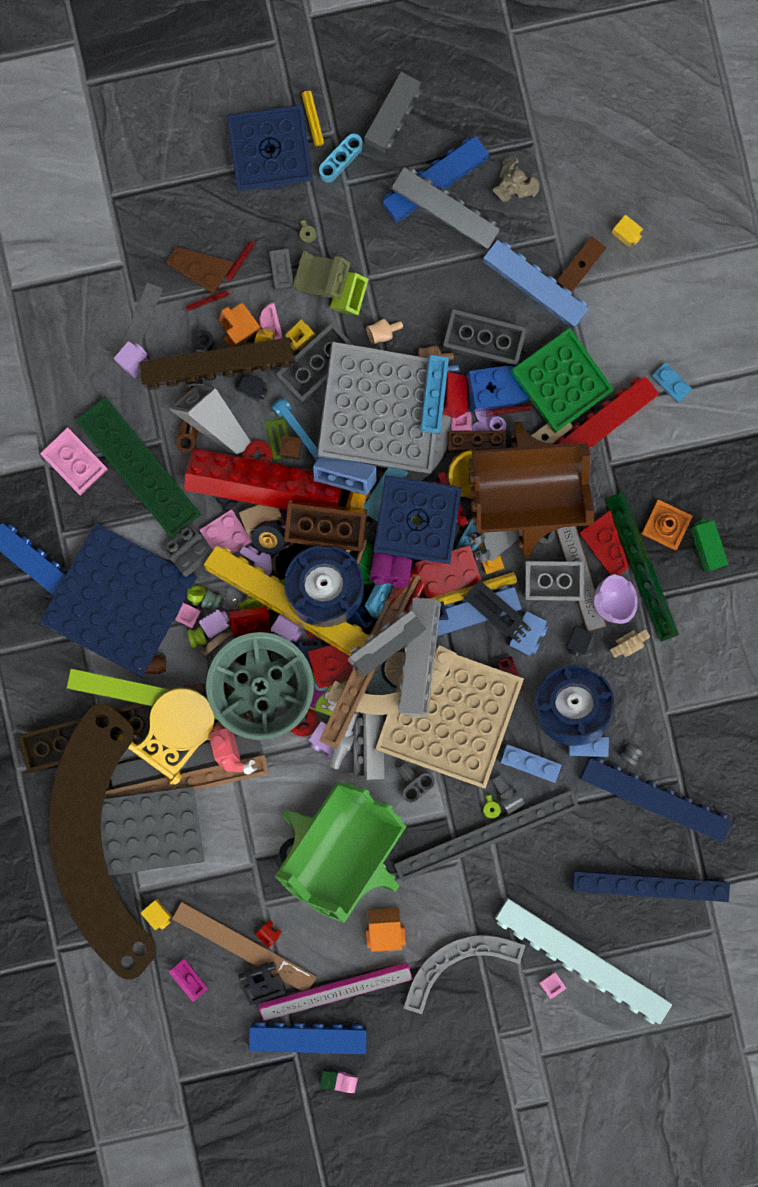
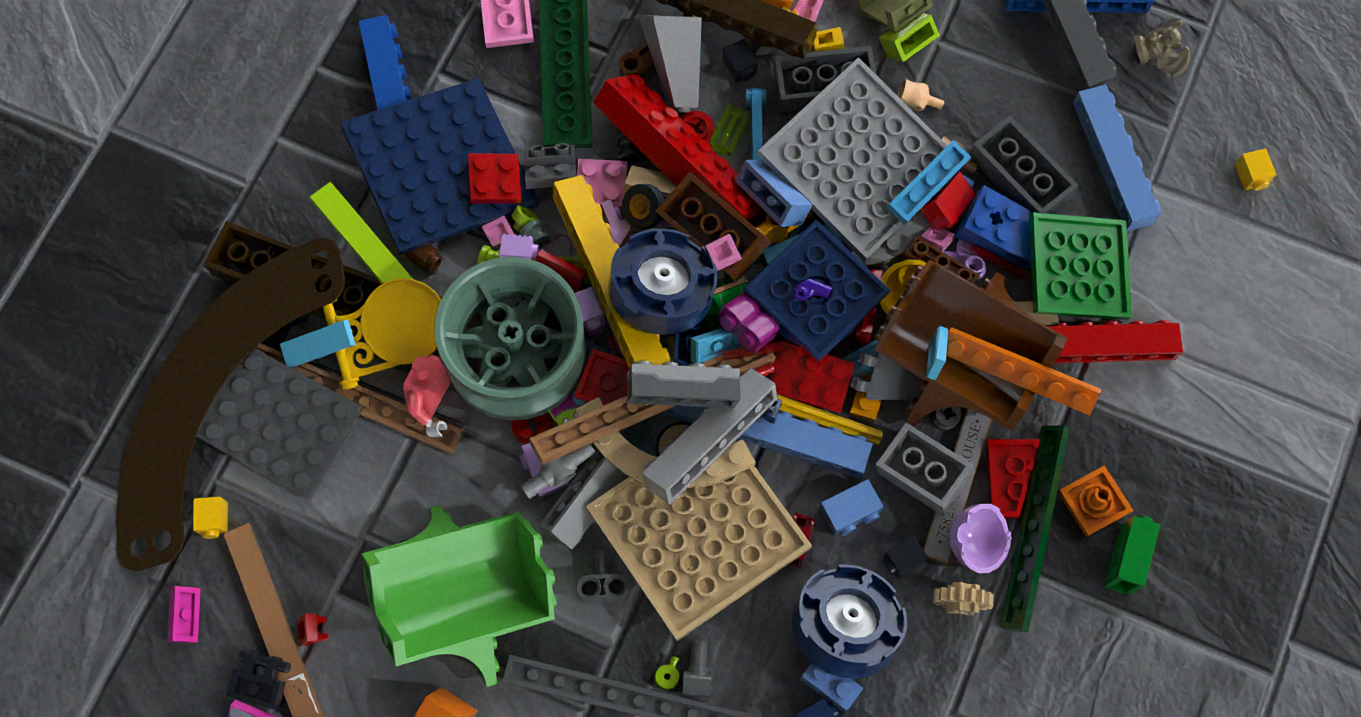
camera: 35 degrees right, 15 degrees down
(139, 770) = (317, 344): none -> medium azure tile
(160, 585) = (494, 178): none -> red plate
(290, 447) = (735, 138): reddish brown brick -> none
(348, 541) = (723, 252): none -> bright pink plate
(414, 523) = (809, 288): none -> dark purple arm
(492, 606) = (831, 446): black hinge -> none
(516, 507) = (937, 352): none -> medium azure tile
(530, 763) = (750, 654): medium blue brick -> none
(572, 482) = (1022, 371): none -> orange plate
(588, 256) = (1191, 167): reddish brown tile -> none
(671, 382) = (1202, 355): dark azure plate -> none

